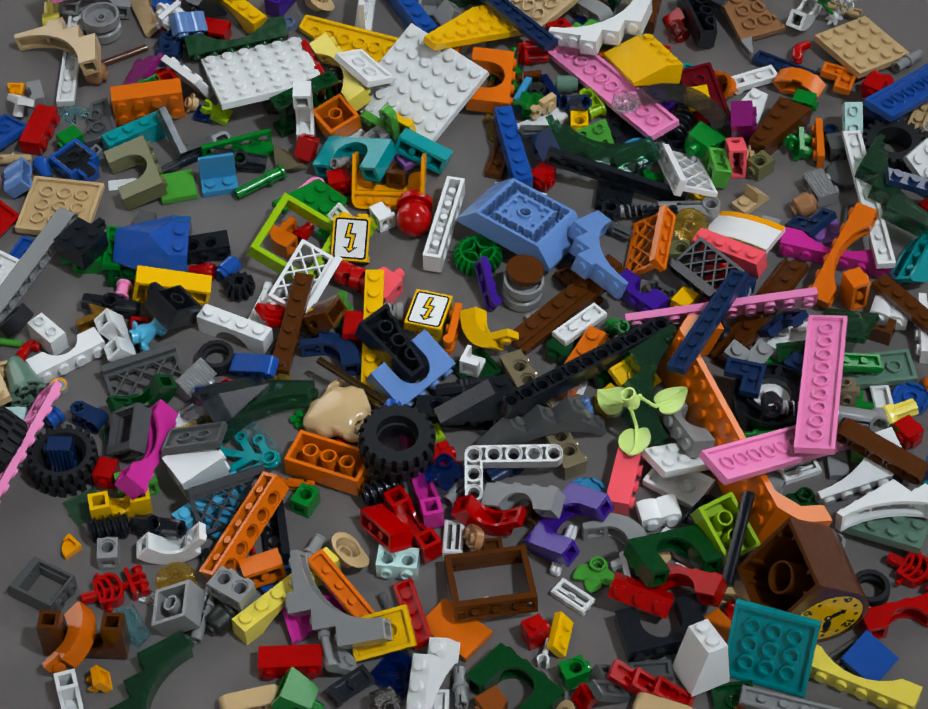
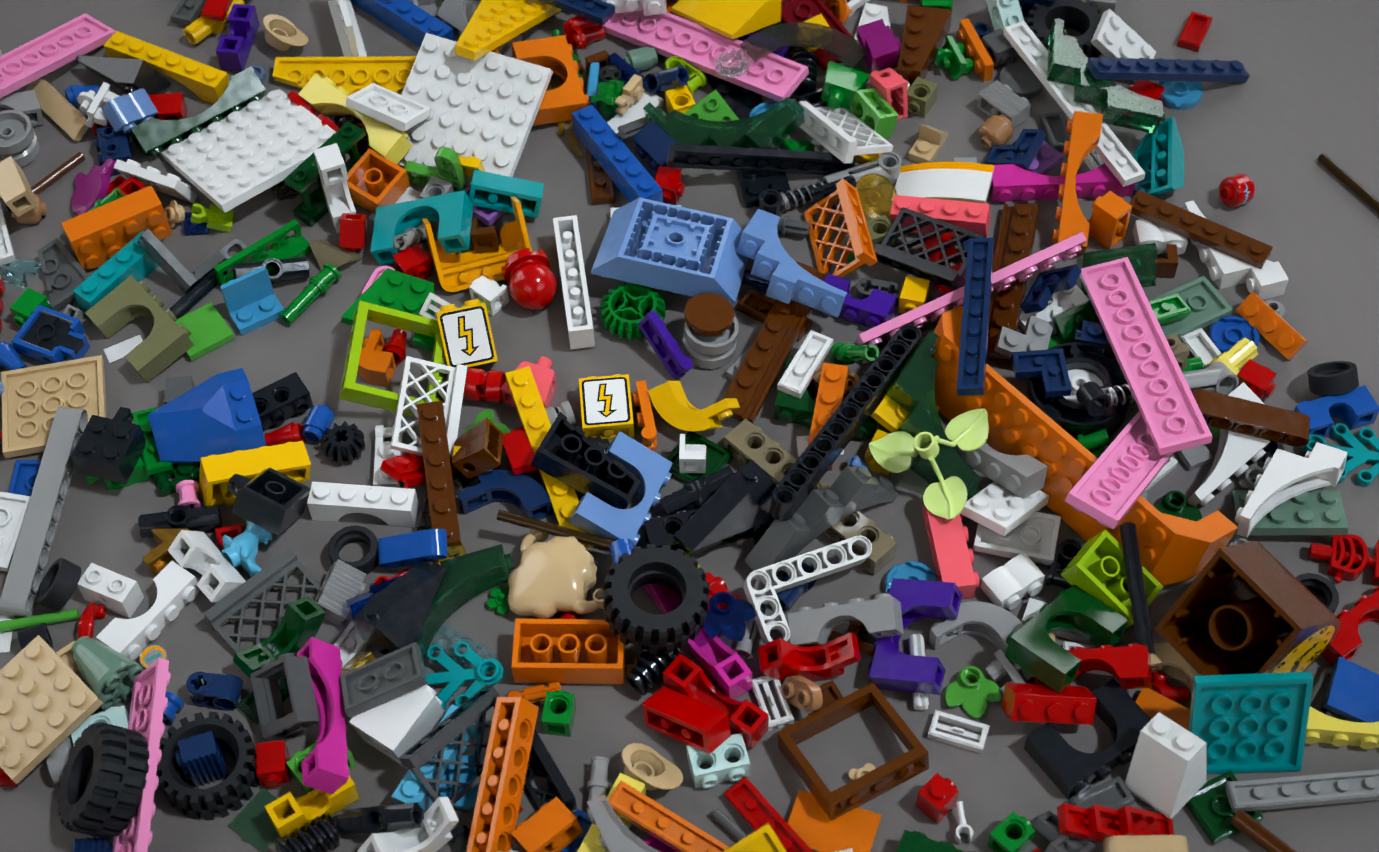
camera: 20 degrees left, 5 degrees up
(560, 635) = (970, 791): yellow plate -> none

